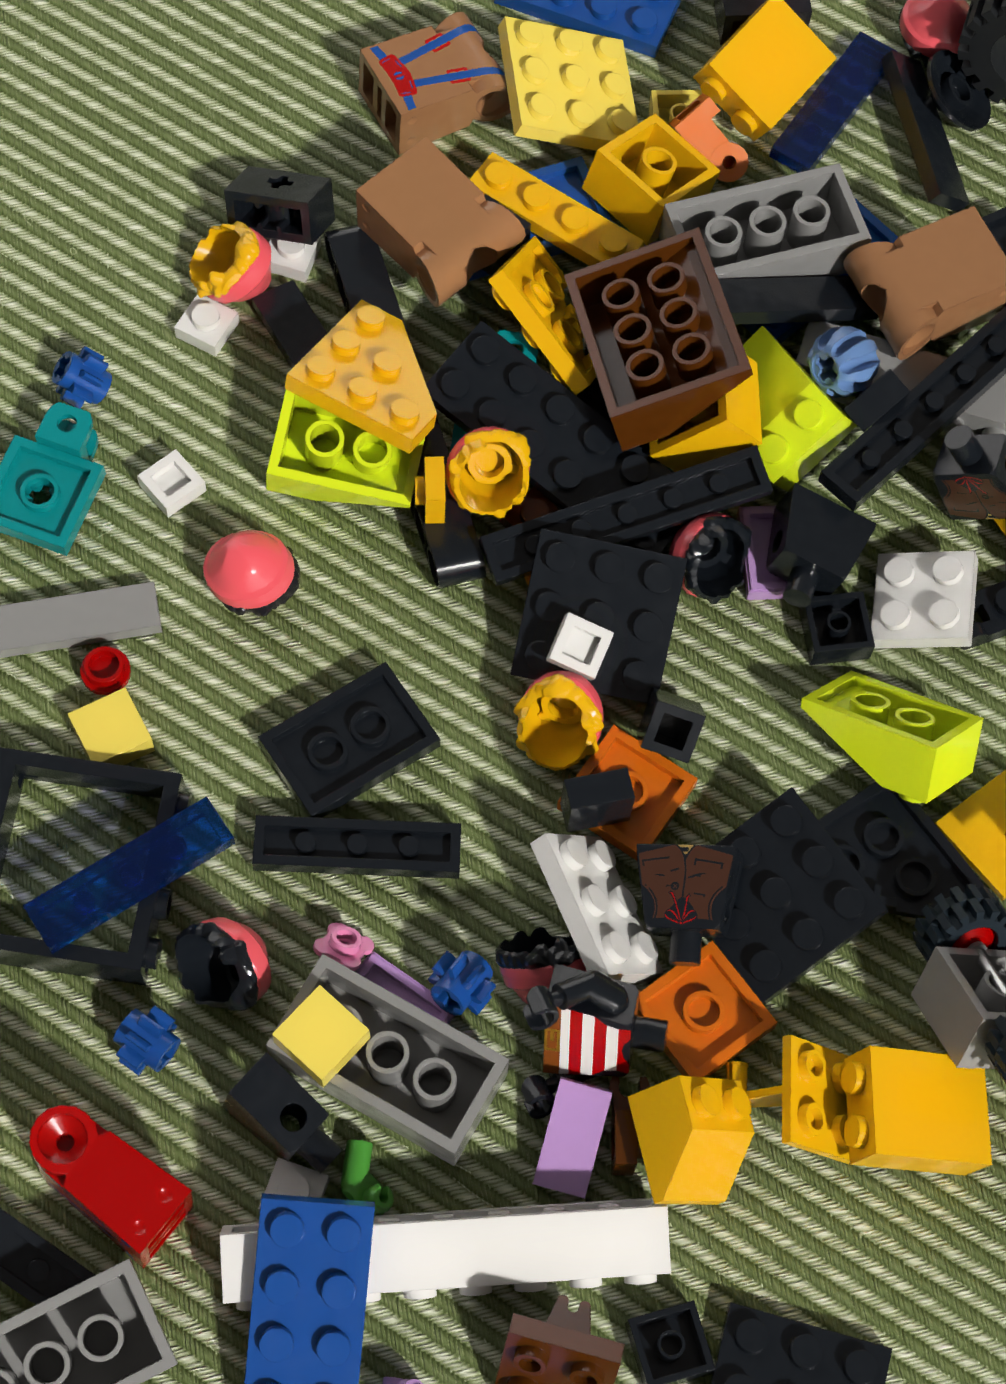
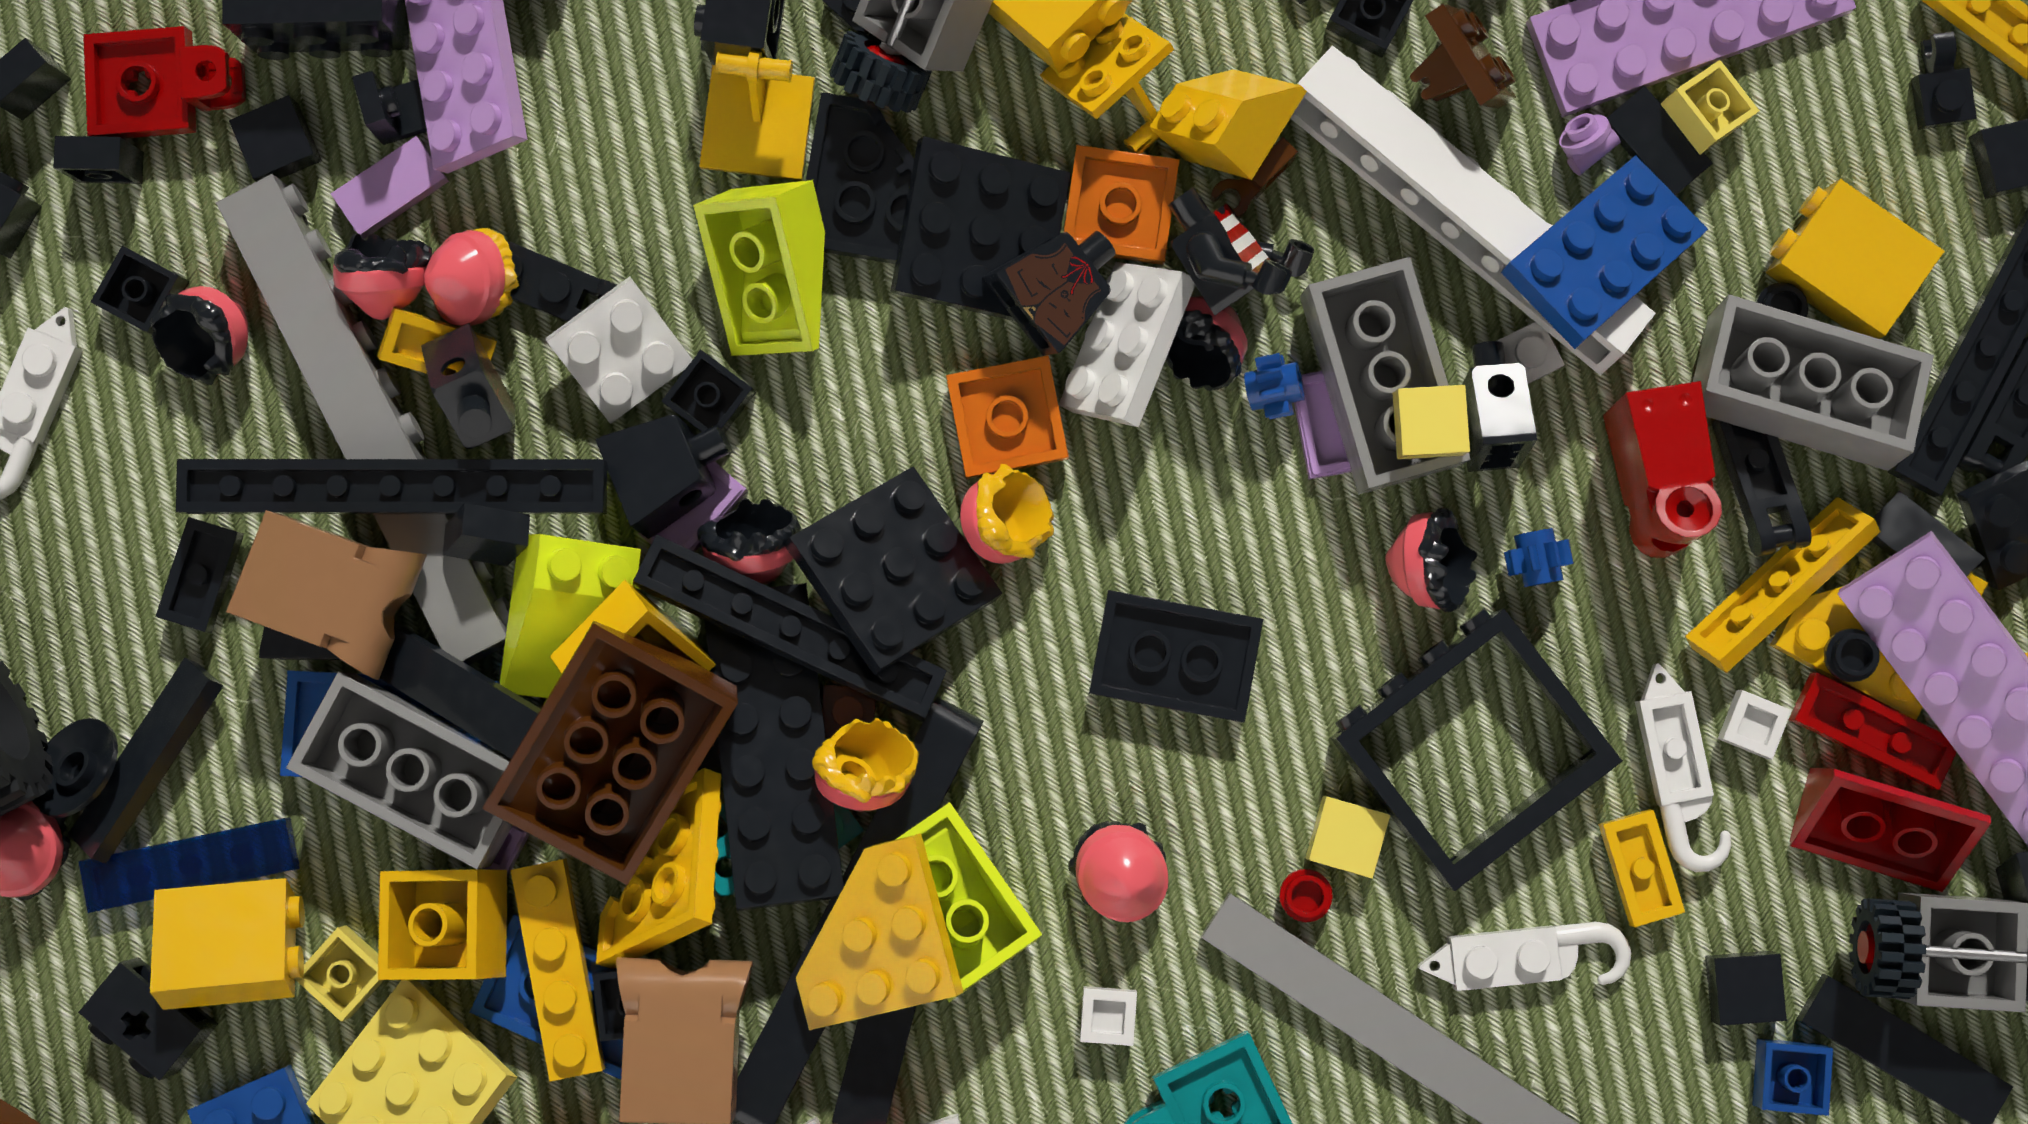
camera: 125 degrees left, 20 degrees up
(128, 875) = (1450, 687): clear blue tile -> none
(344, 945) = (1346, 494): bright pink plate -> none
(356, 846) = (1249, 566): black plate -> none
(358, 1182) = (1476, 316): bright green arm -> none
(431, 490) = (925, 794): yellow plate -> none
(572, 1137) = (1301, 204): lavender tile -> none
(579, 646) = (942, 548): white plate -> none
(597, 799) = (1049, 418): black piece -> none
(670, 725) = (927, 431): black brick -> none
(702, 133) = (354, 918): orange leg -> none
(843, 361) = (482, 586): medium blue piece -> none

